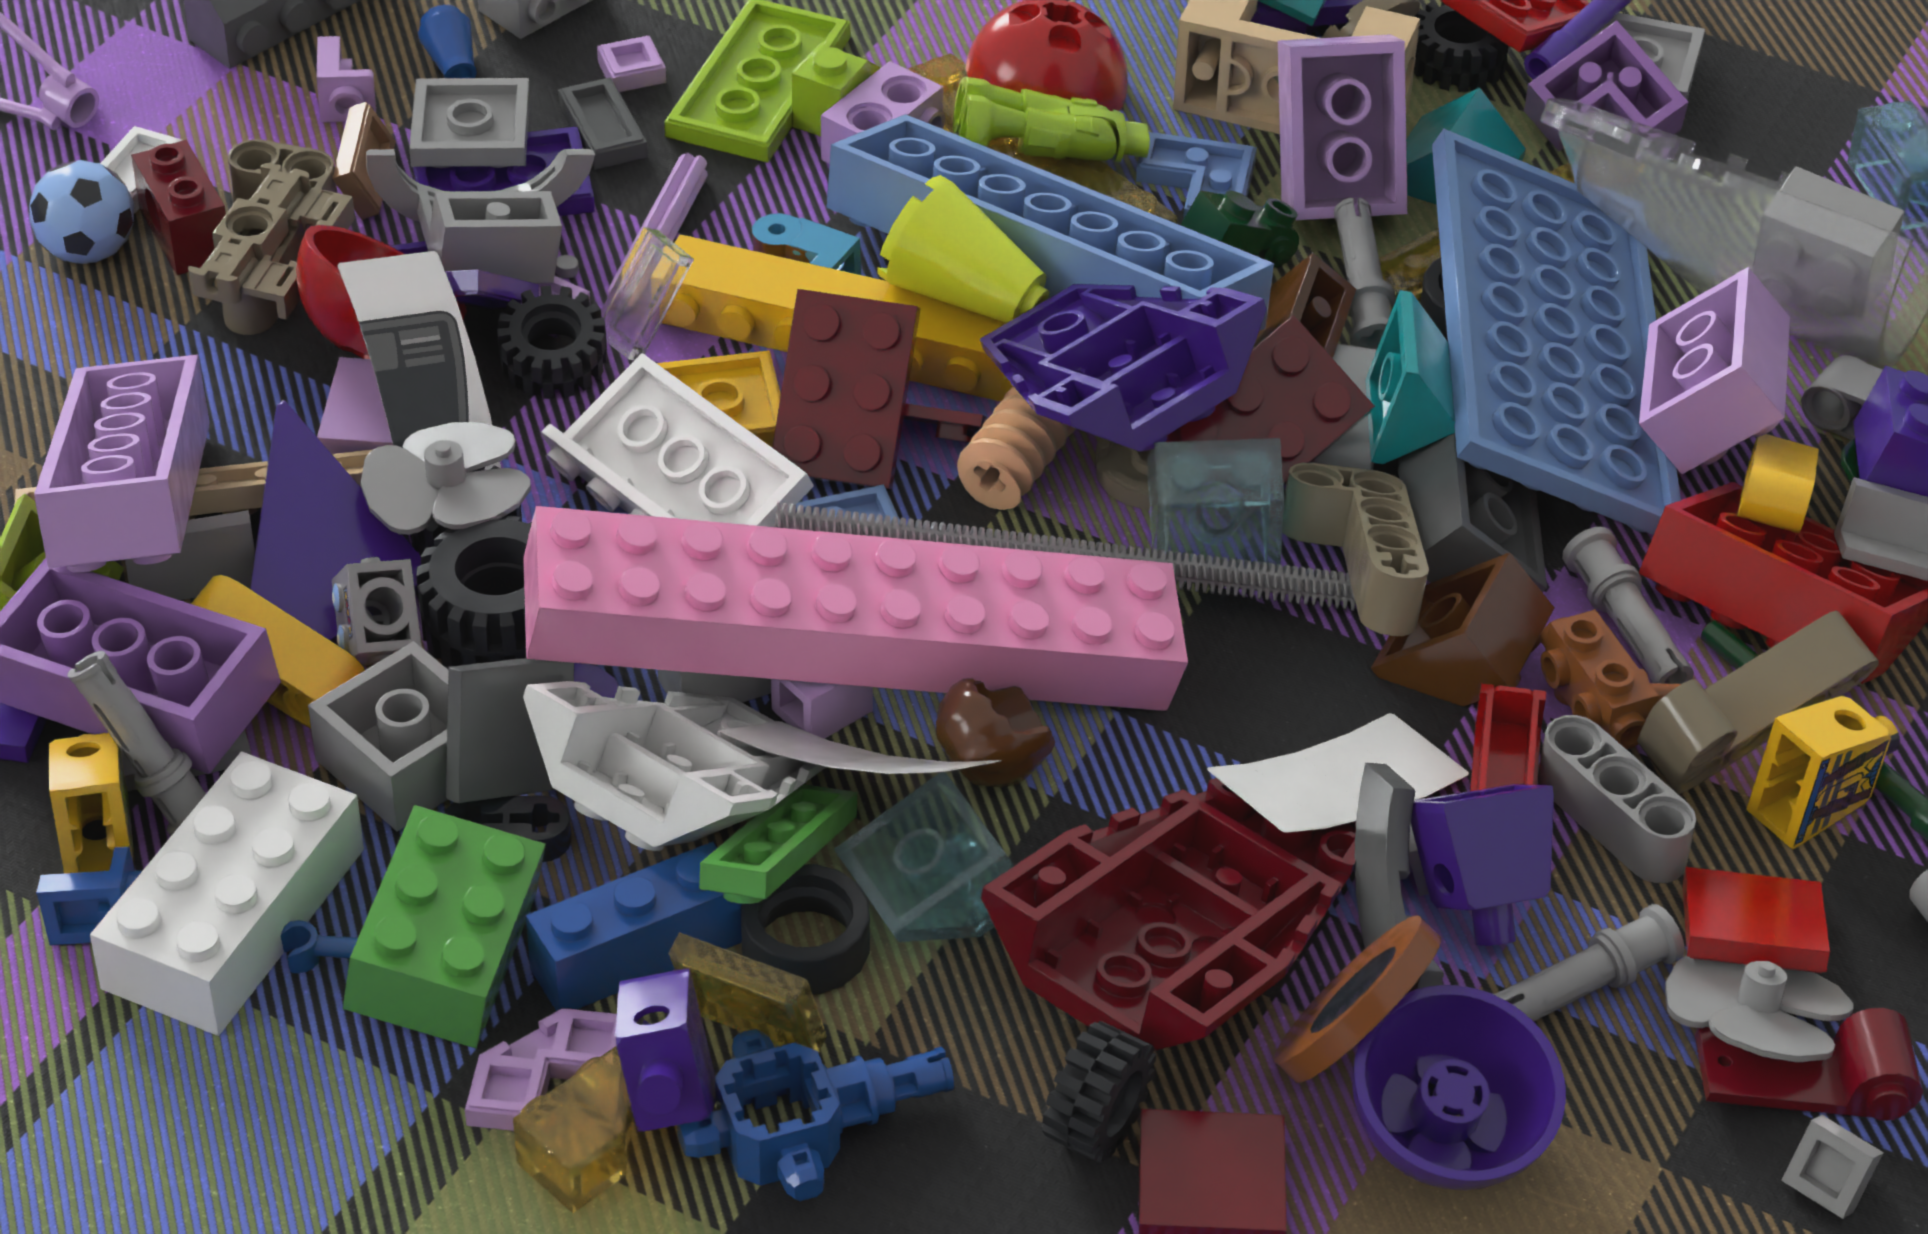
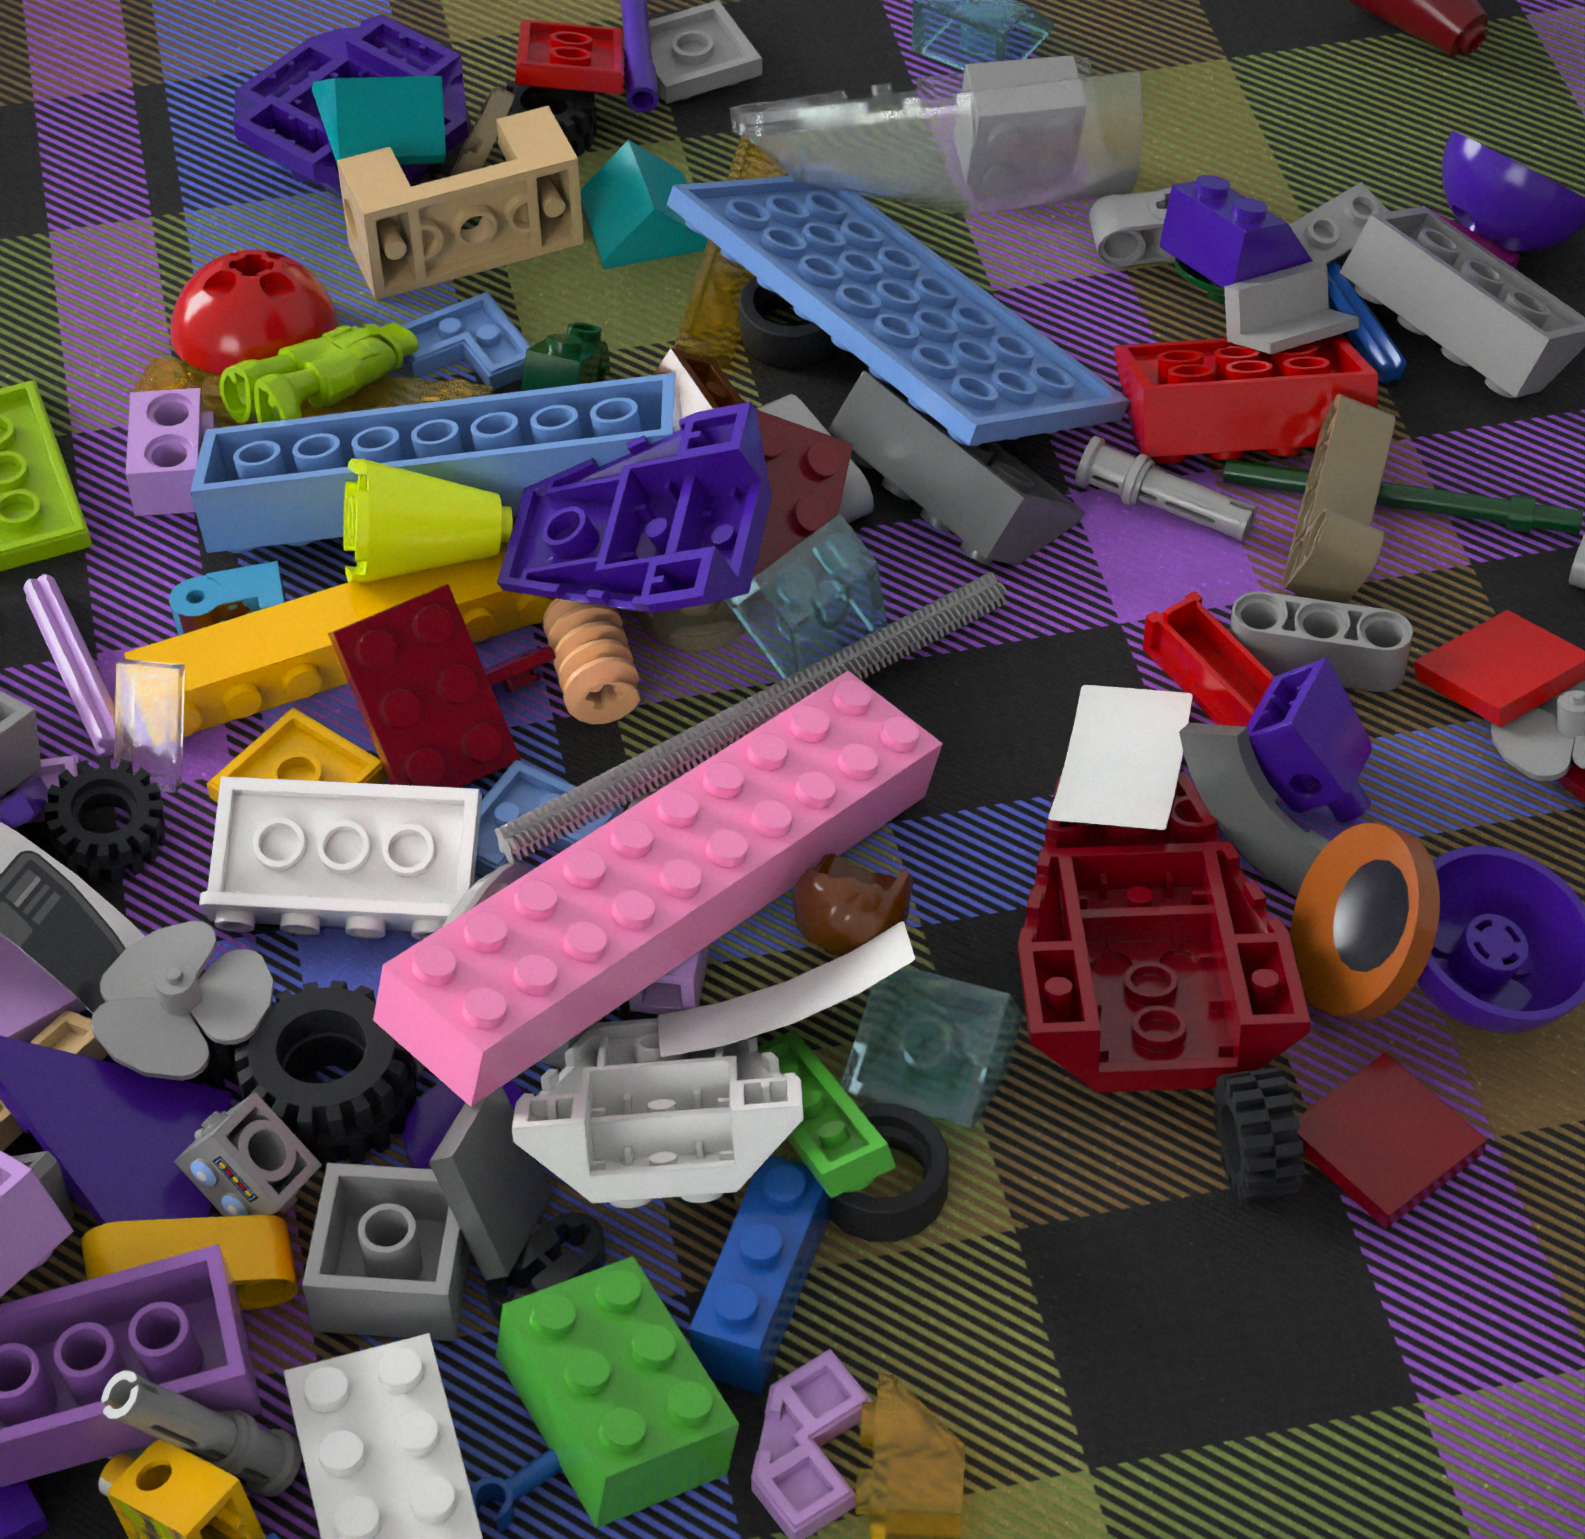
camera: 40 degrees left, 5 degrees up
(667, 1061) = (961, 1375): dark purple torso -> none
(749, 993) = (929, 1259): clear yellow tile -> none
(822, 82) = (96, 450): lime slope -> none
(836, 1096) = (1067, 1292): blue piece -> none
(1343, 124) = (576, 229): lavender brick -> none
(1373, 295) = (685, 335): light grey pin -> none
(1378, 533) = (965, 556): dark tan beam -> none
(1409, 384) = (866, 409): teal slope -> none
(1469, 633) = (1079, 585): reddish brown slope -> none
(1598, 676) = (1215, 555): dark orange brick -> none
(1609, 960) = (1448, 768): light grey pin -> none
(1611, 76) = (710, 80): medium lavender brick -> none
(1715, 372) = (1047, 263): lavender brick -> none
(1778, 483) = (1171, 323): yellow beam -> none
(1819, 767) = (1437, 504): yellow torso -> none

